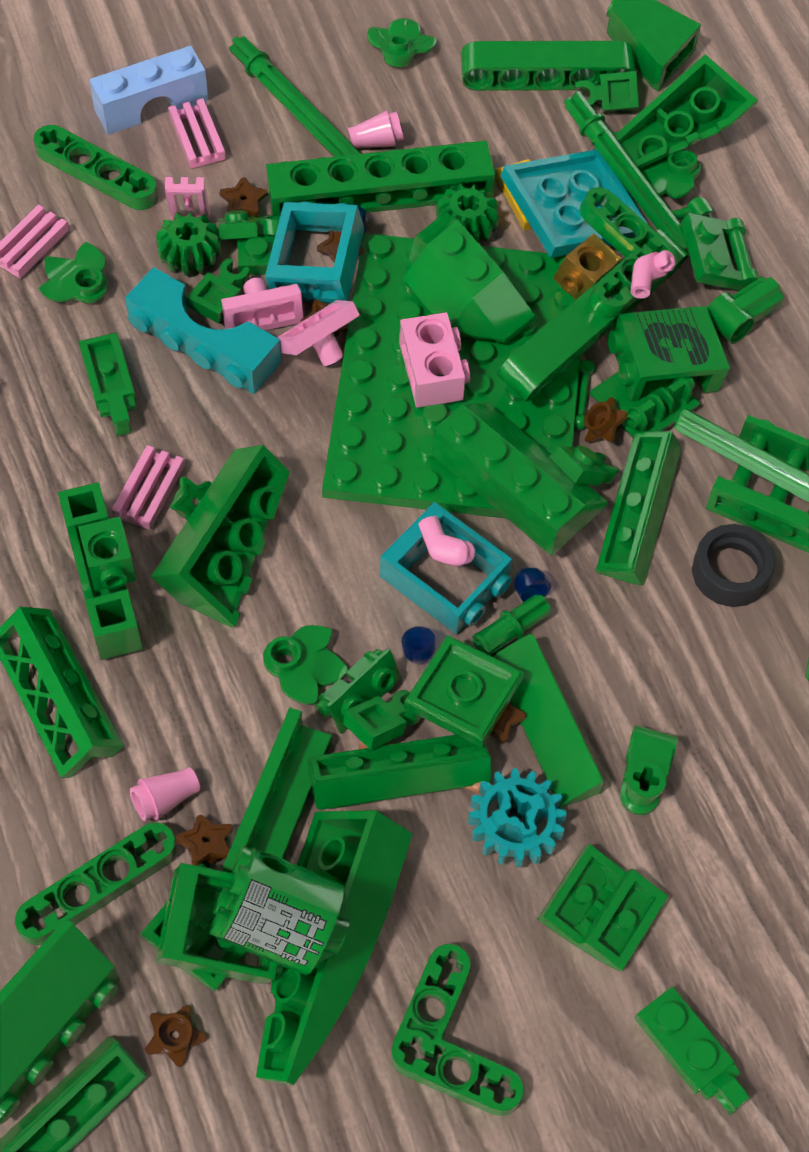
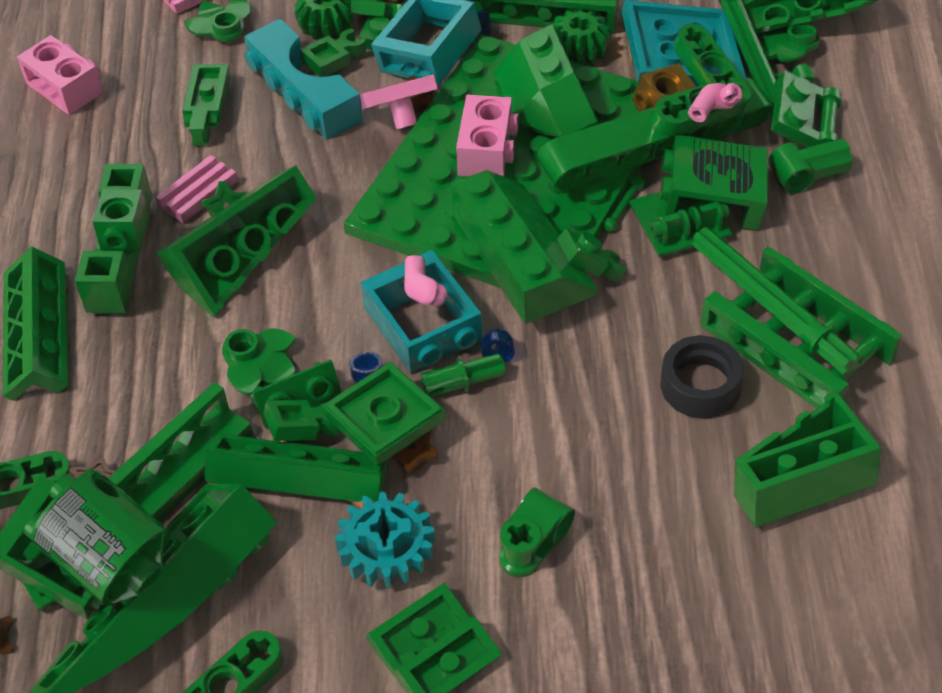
camera: 25 degrees right, 10 degrees down
(162, 793) = (79, 430): bright pink cone -> none
(264, 307) = (363, 69): bright pink tile -> none
(551, 725) = (457, 471): green slope -> none
(603, 420) = (628, 225): reddish brown plate -> none
(639, 506) = (633, 307): green slope -> none

